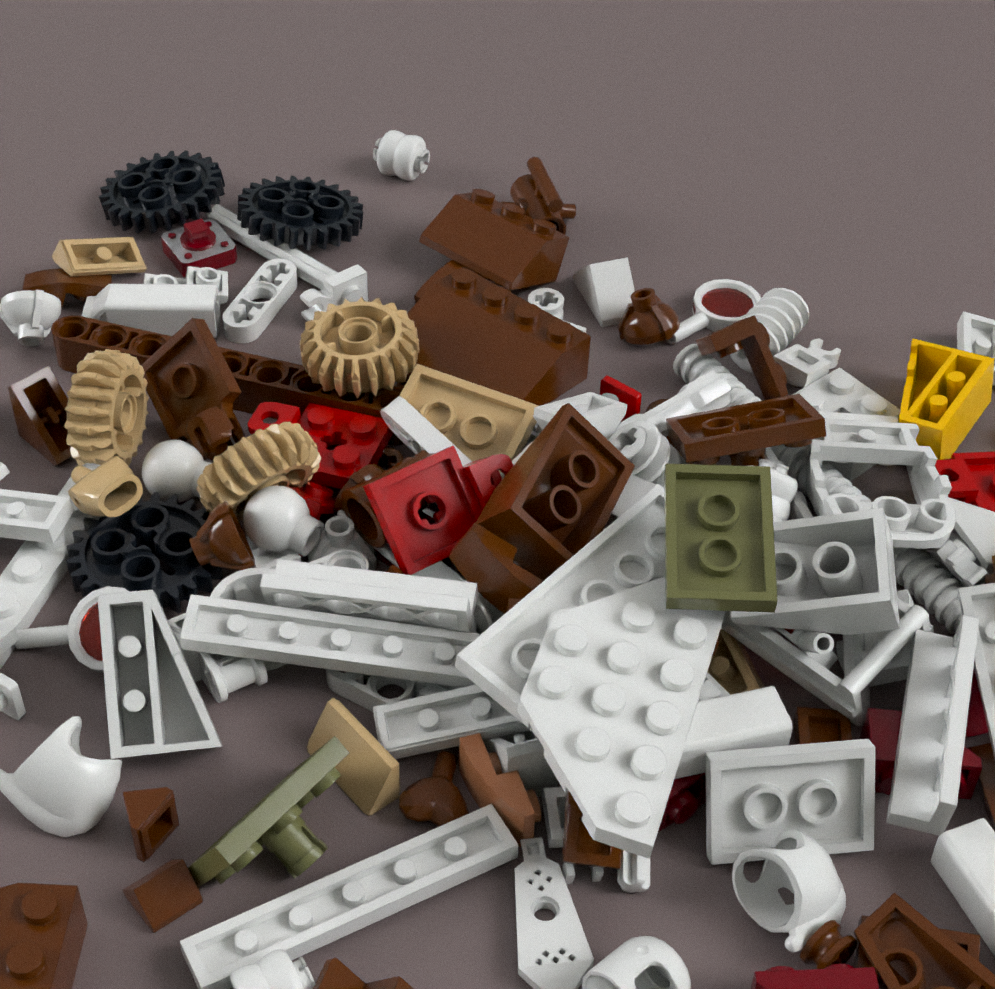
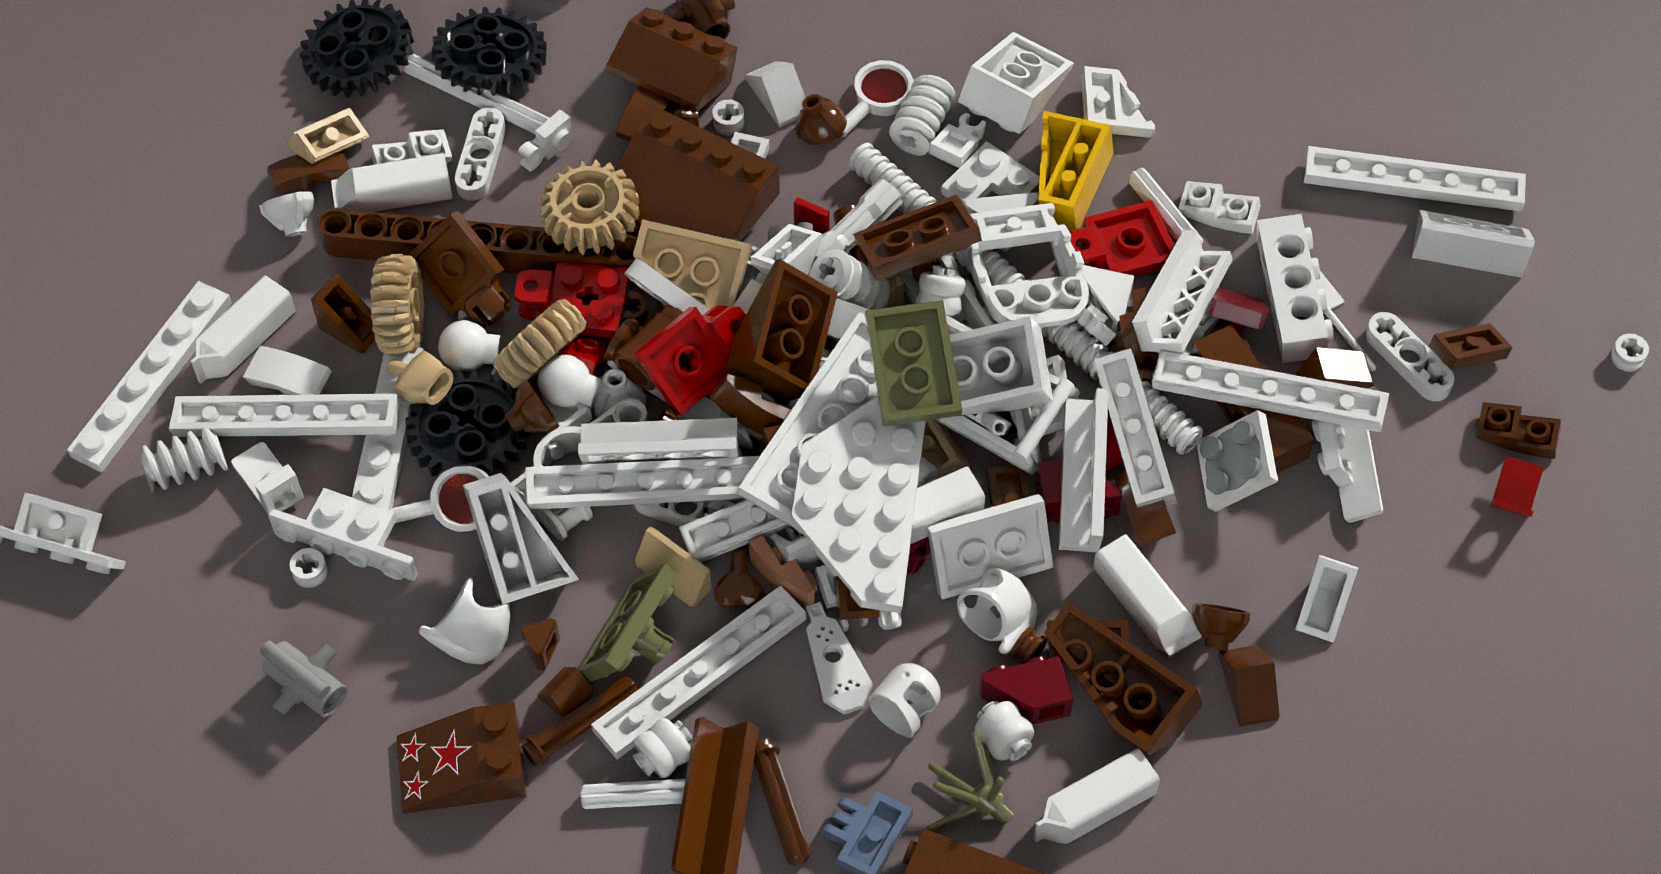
camera: 10 degrees left, 15 degrees up
(159, 937) = (576, 722): none -> reddish brown axle
(199, 245) = (408, 104): dark red piece -> none
(755, 341) = (891, 144): reddish brown bracket -> none
(875, 319) = (1013, 82): none -> white slope

